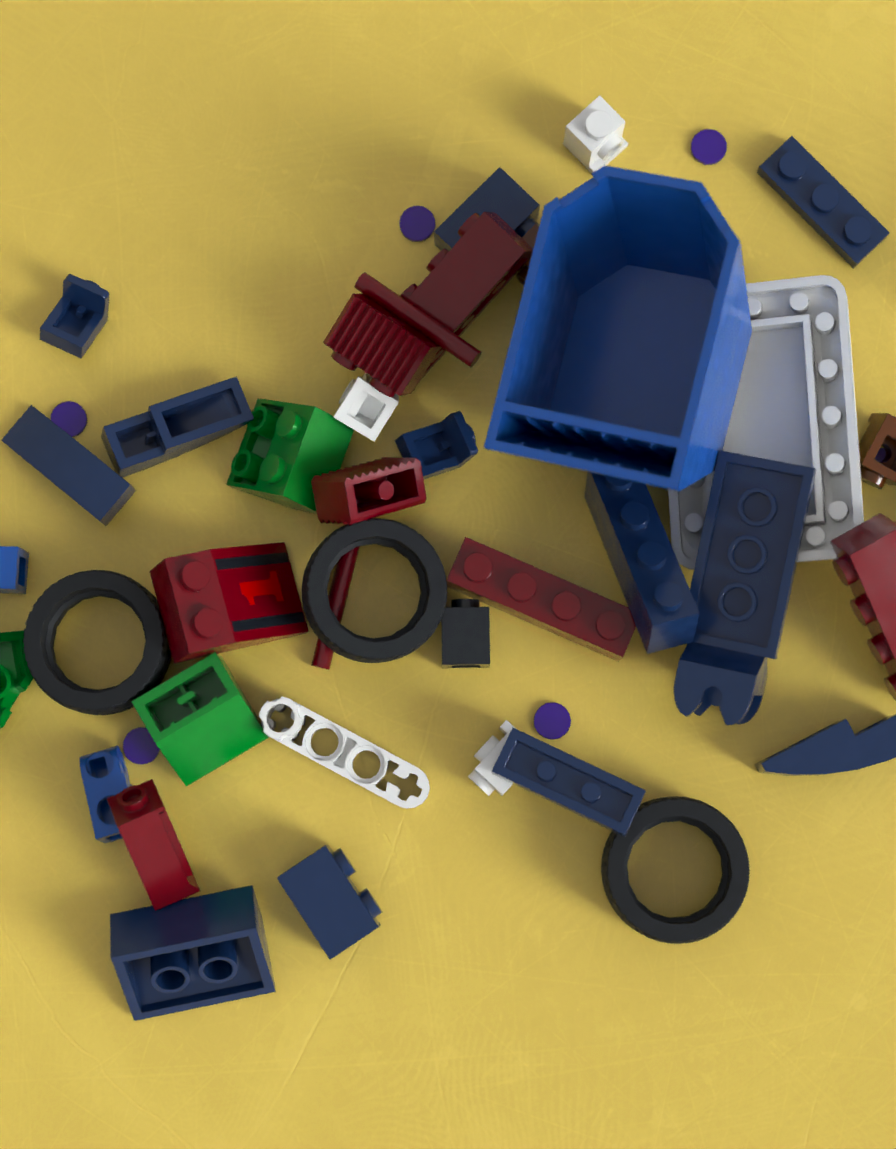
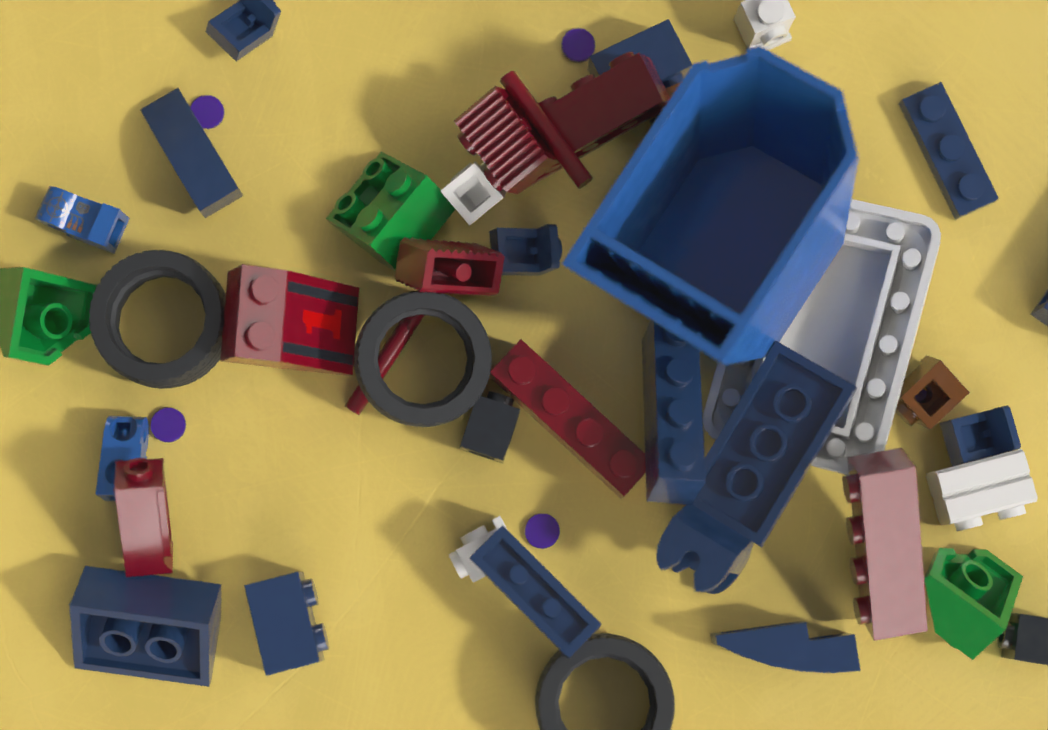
camera: 10 degrees right, 0 degrees up
(176, 426) = (299, 151): dark blue slope -> none
(200, 719) = (227, 419): green slope -> none
(342, 759) = (342, 499): white beam -> none
(708, 147) = (863, 66): dark purple piece -> none

